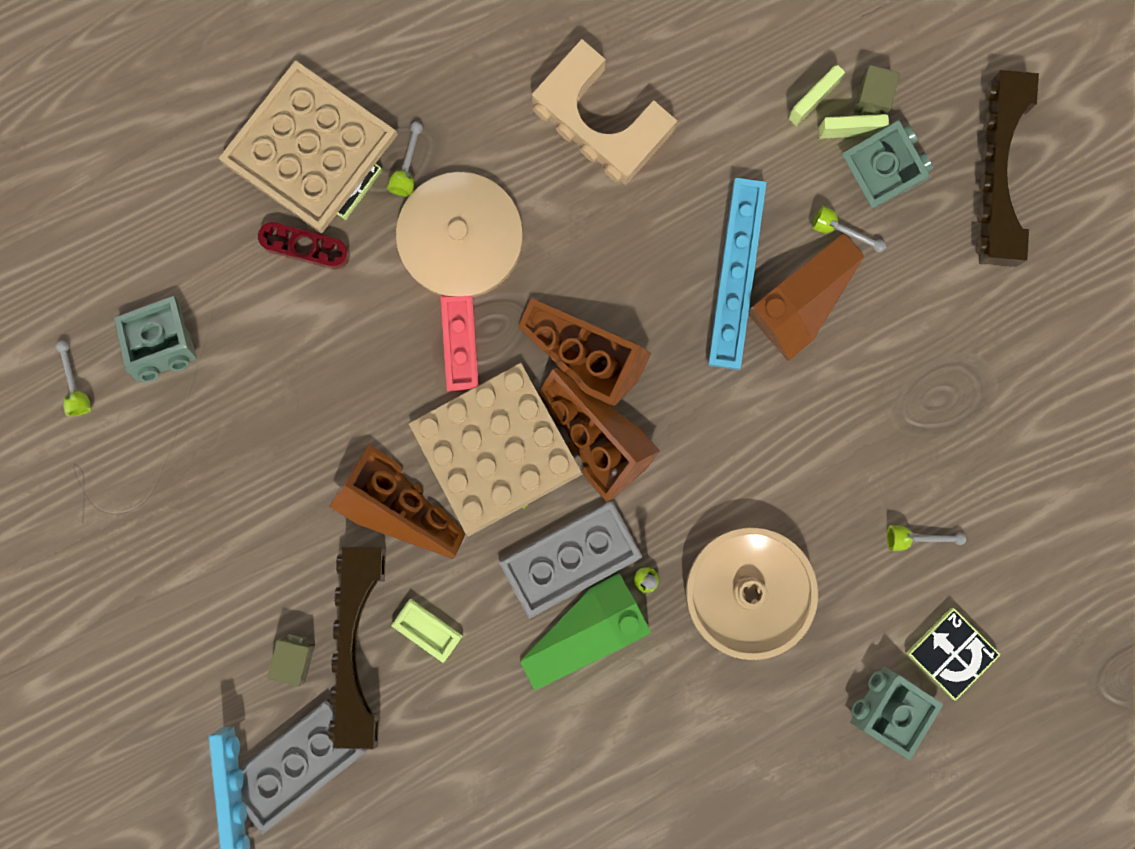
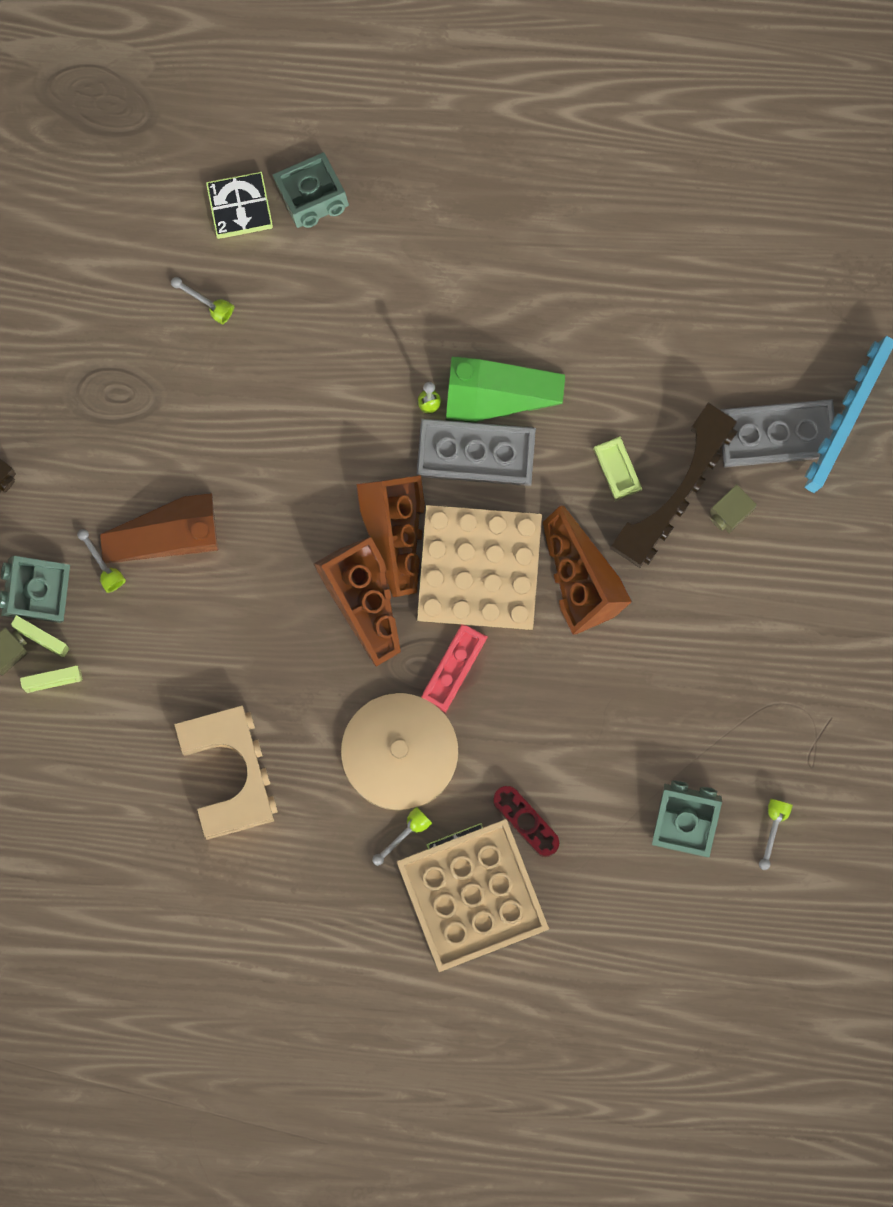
camera: 150 degrees left, 5 degrees down
(737, 274) = (206, 582): medium azure plate -> none
(752, 593) = (358, 339): tan dish -> none

